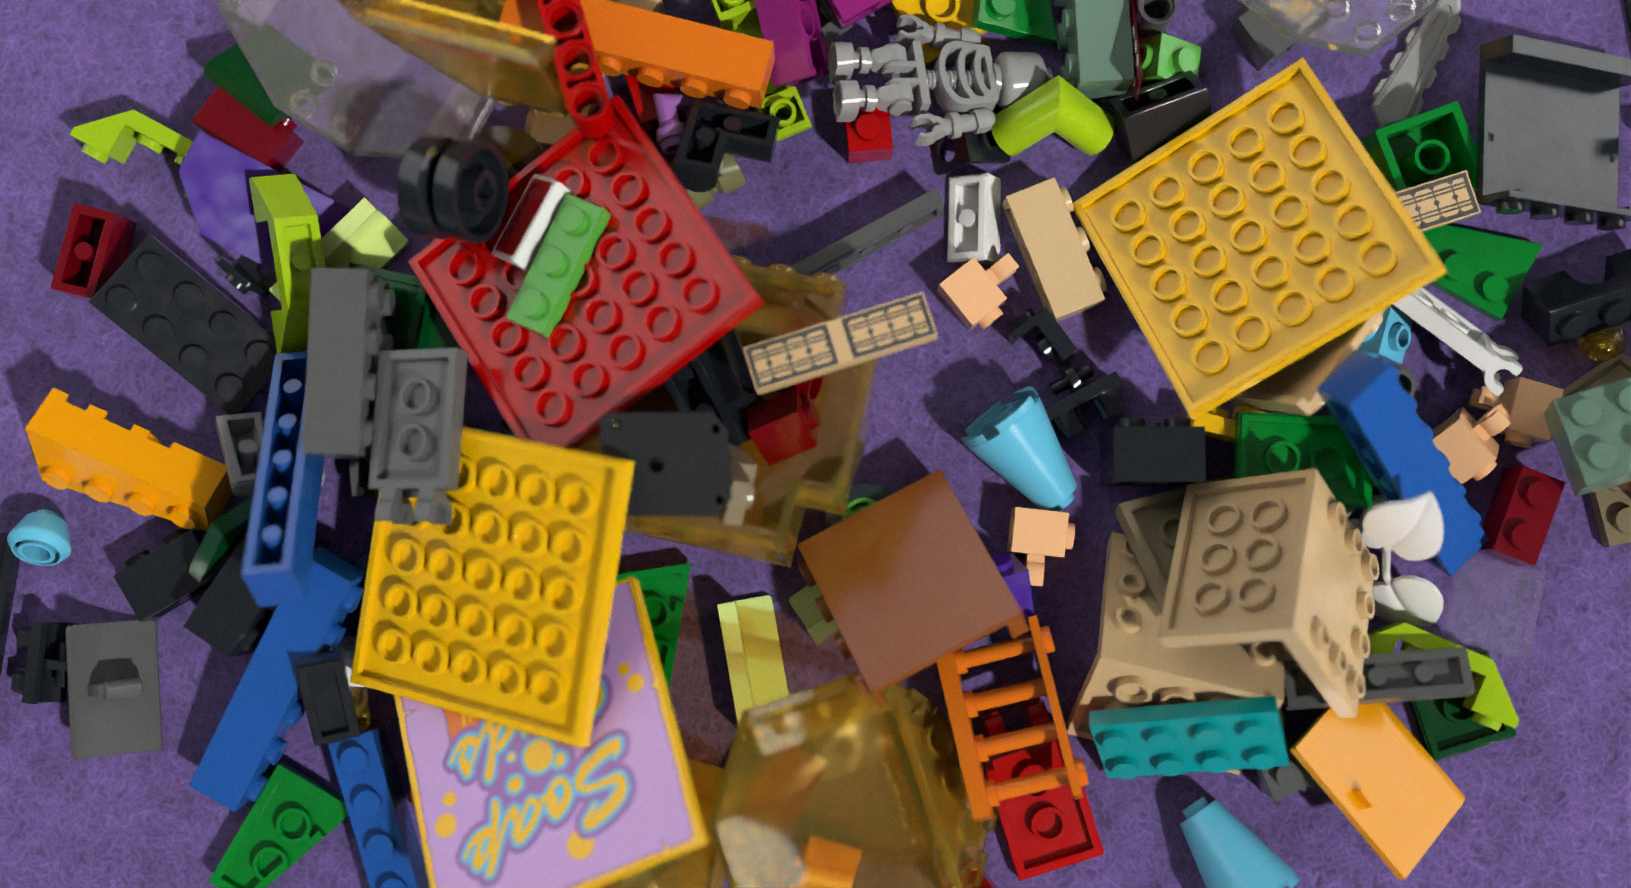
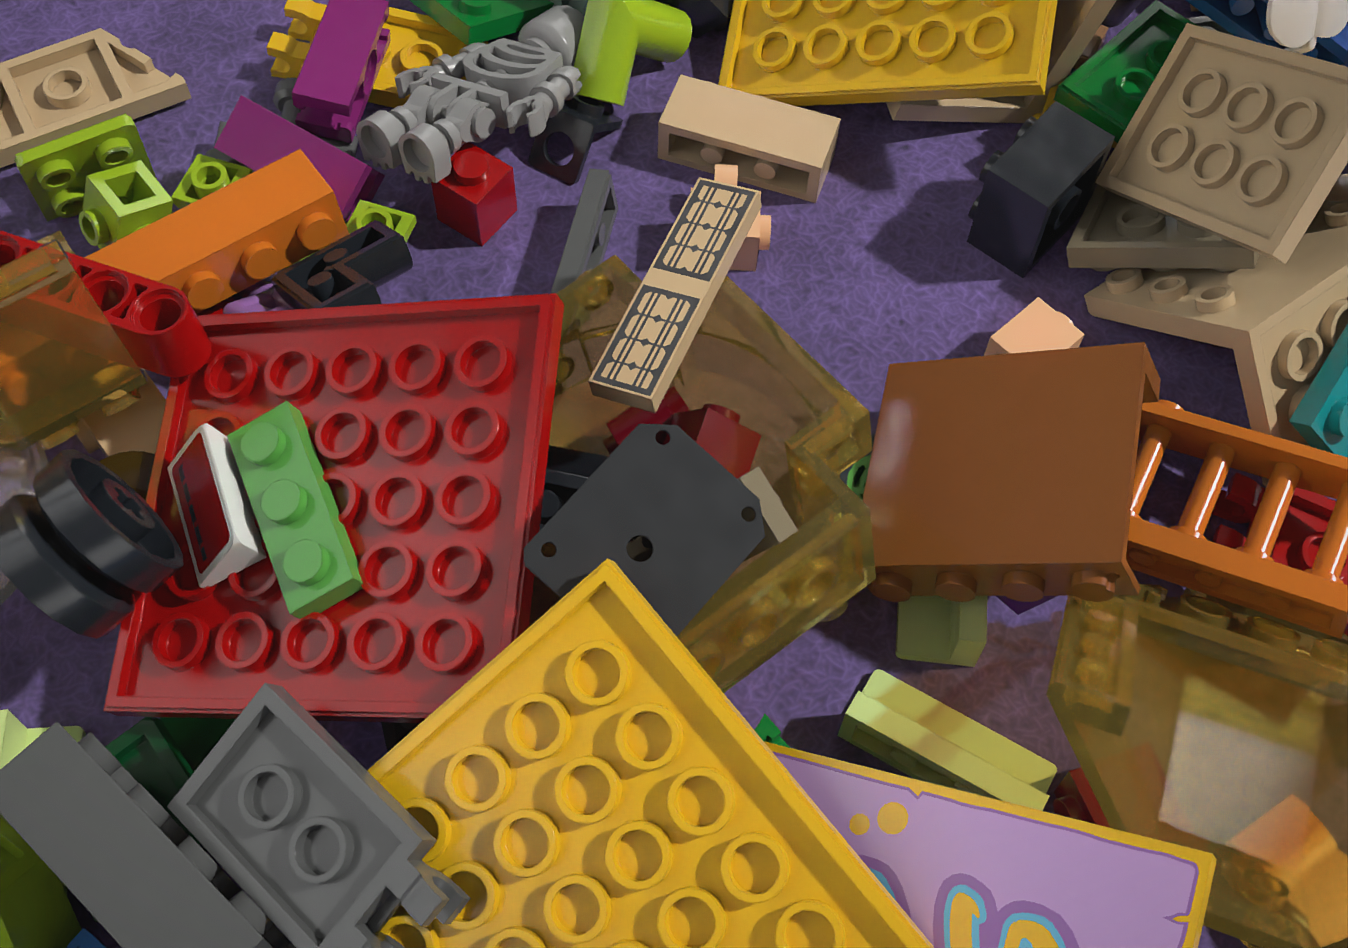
camera: 55 degrees left, 25 degrees down
(974, 218) = (644, 182): white slope -> none
(1024, 450) = (929, 292): medium azure cone -> none
(1050, 338) = (829, 197): black bracket -> none
(1102, 394) = (897, 214): black hips -> none

